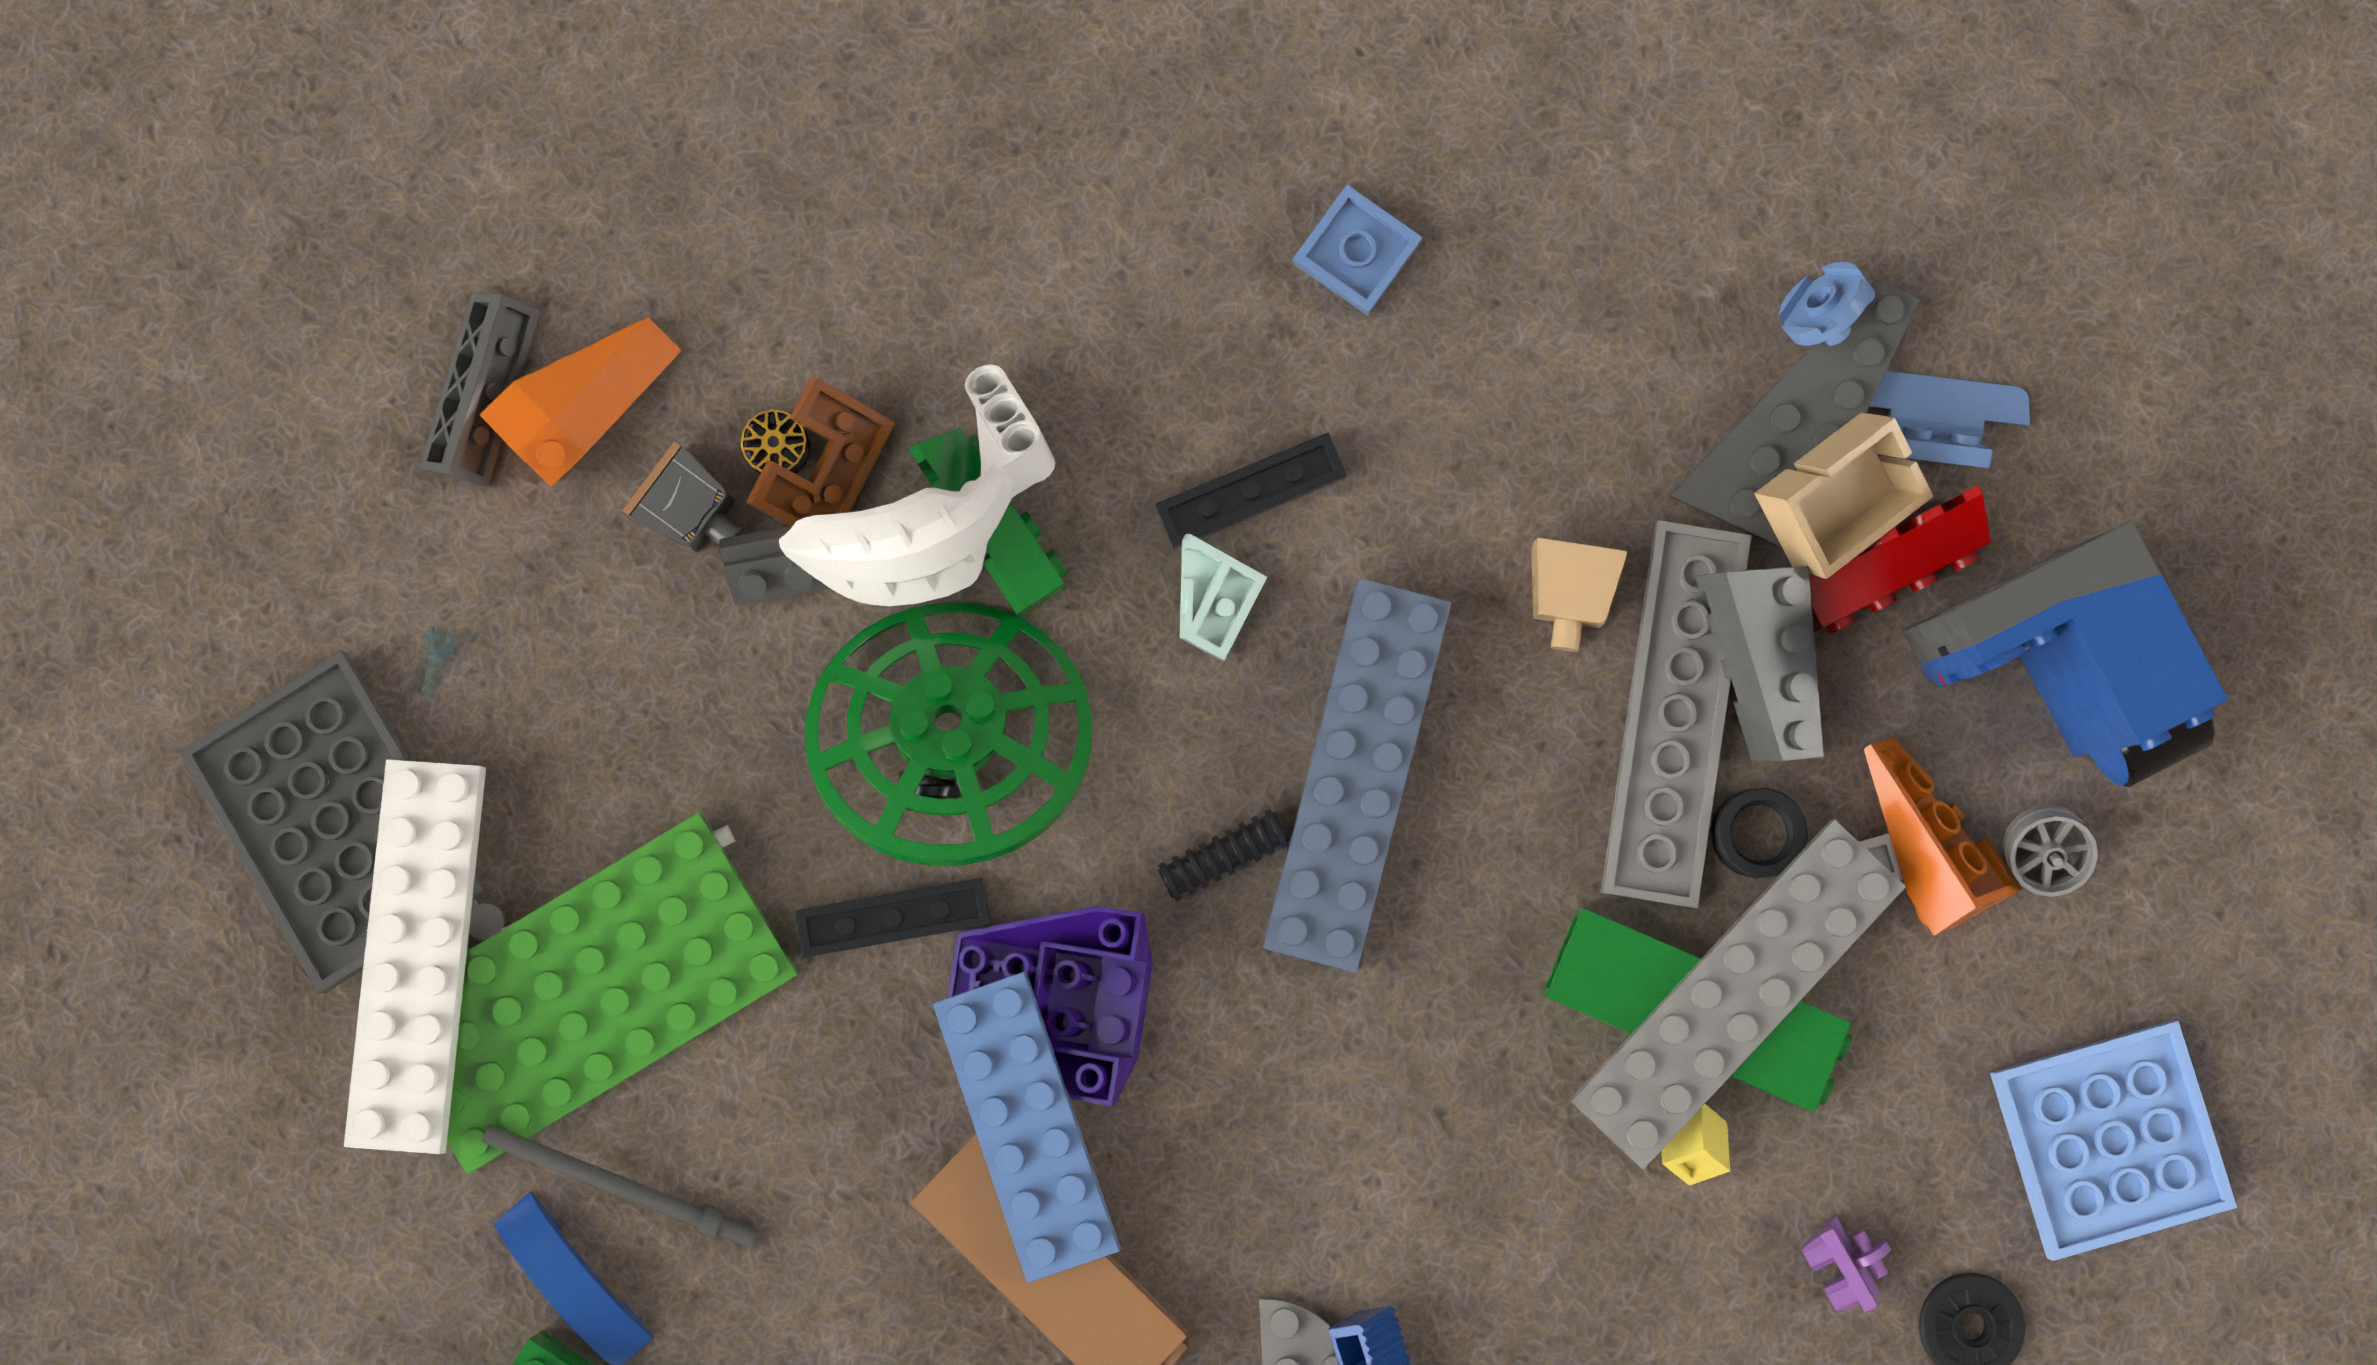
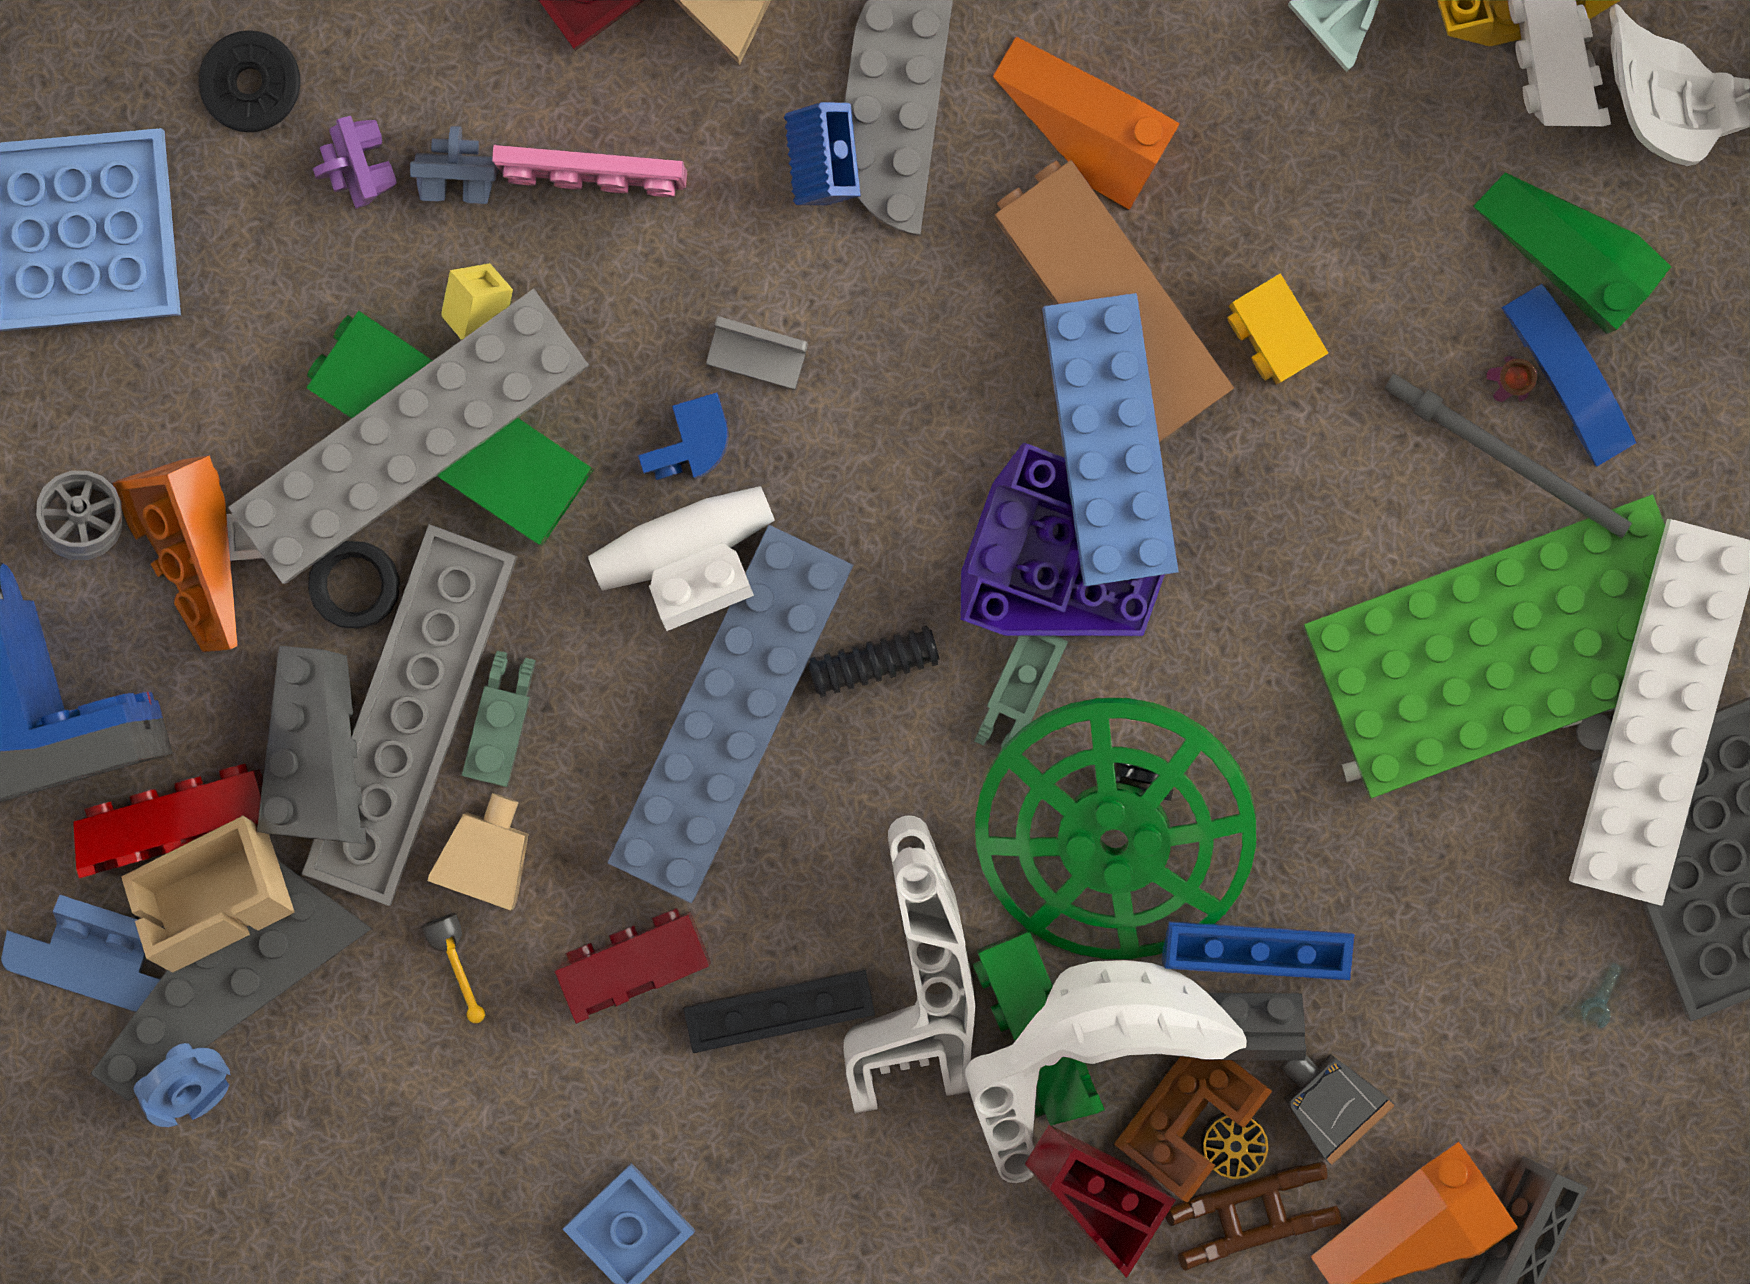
camera: 170 degrees left, 5 degrees up
(625, 1267) = (1514, 378): none -> clear orange piece
(717, 375) = (1278, 1226): none -> reddish brown piece
(785, 638) = (1258, 950): none -> blue slope
(878, 1270) = (1276, 330): none -> yellow brick
(893, 917) = (1202, 661): black plate -> none
(896, 369) = (1102, 1195): none -> dark red wedge
(1070, 860) = (1022, 683): none -> sand green hinge
(1092, 507) = (937, 1022): none -> white piece
(1214, 596) = (834, 913): light aqua wing -> none
(1401, 1145) = (757, 353): none -> light grey panel
(1407, 507) = (631, 964): none -> dark red wedge
(1431, 925) = (688, 555): none -> white plate
(1438, 1046) = (703, 438): none -> blue brick
(1585, 721) = (498, 725): none -> sand green hinge
(1596, 500) = (443, 936): none -> hinge
(1624, 1302) = (608, 171): none -> bright pink tile
(1765, 1271) = (435, 169): none -> sand blue hips

